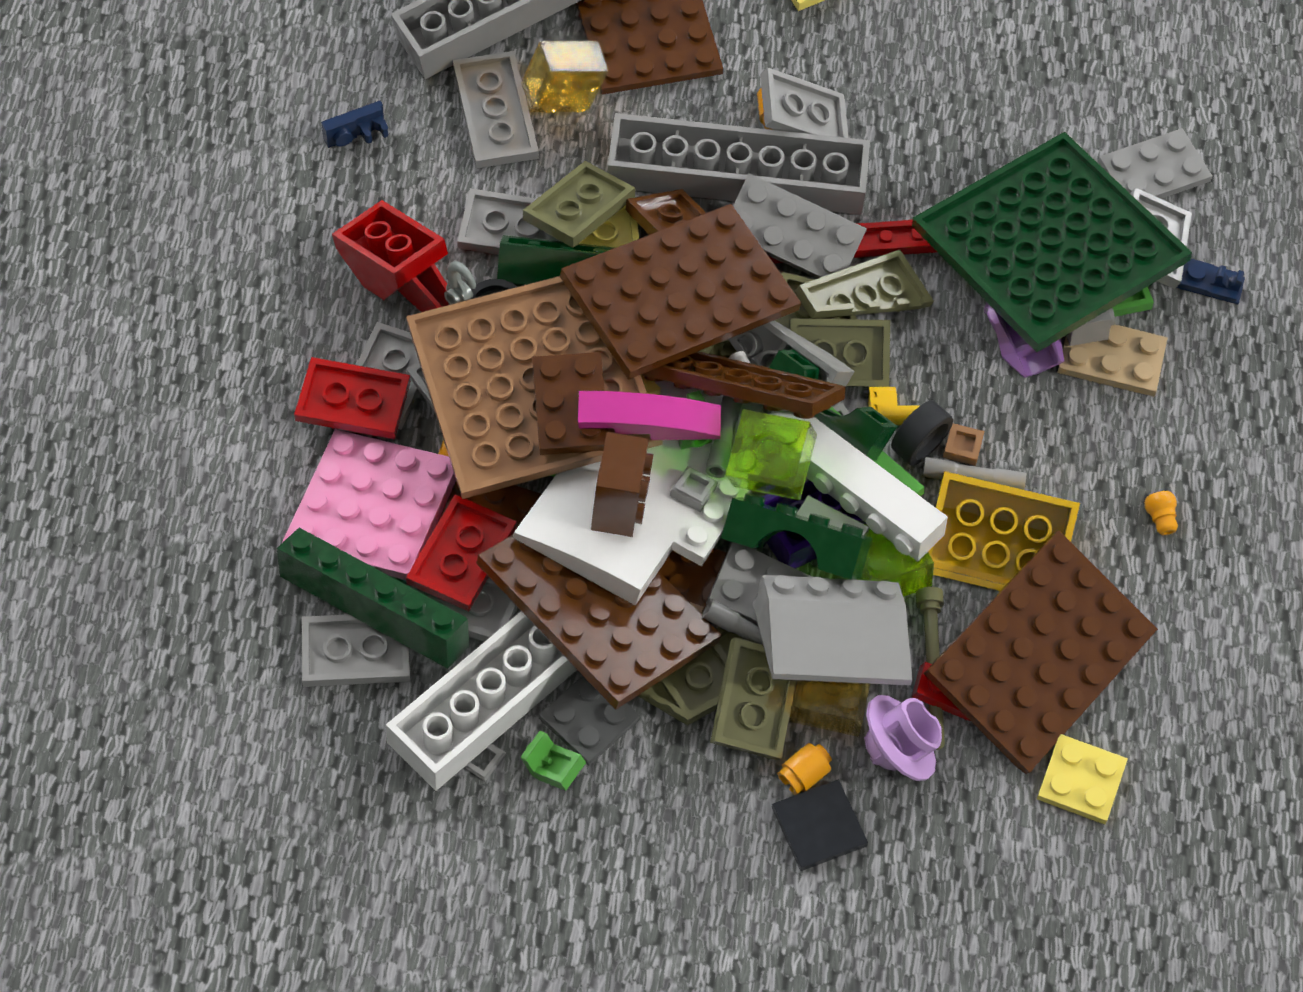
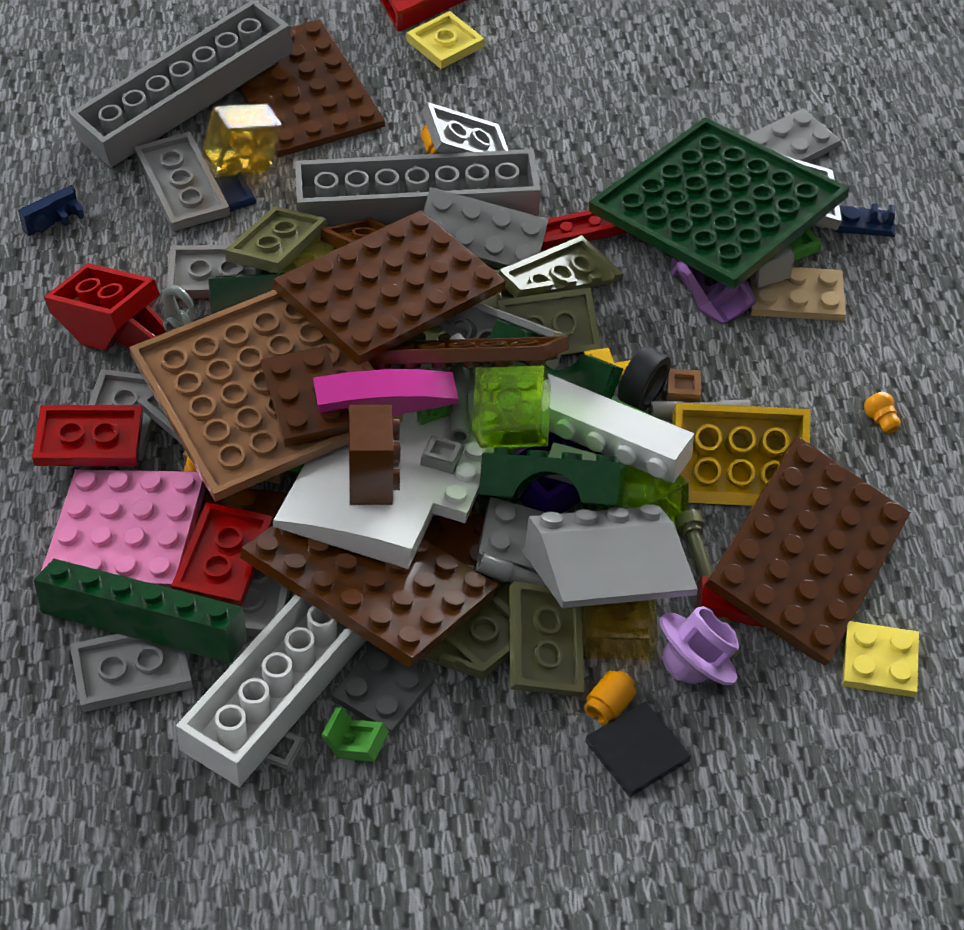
camera: 10 degrees left, 10 degrees down
(548, 131) = (235, 191): none -> dark blue tile

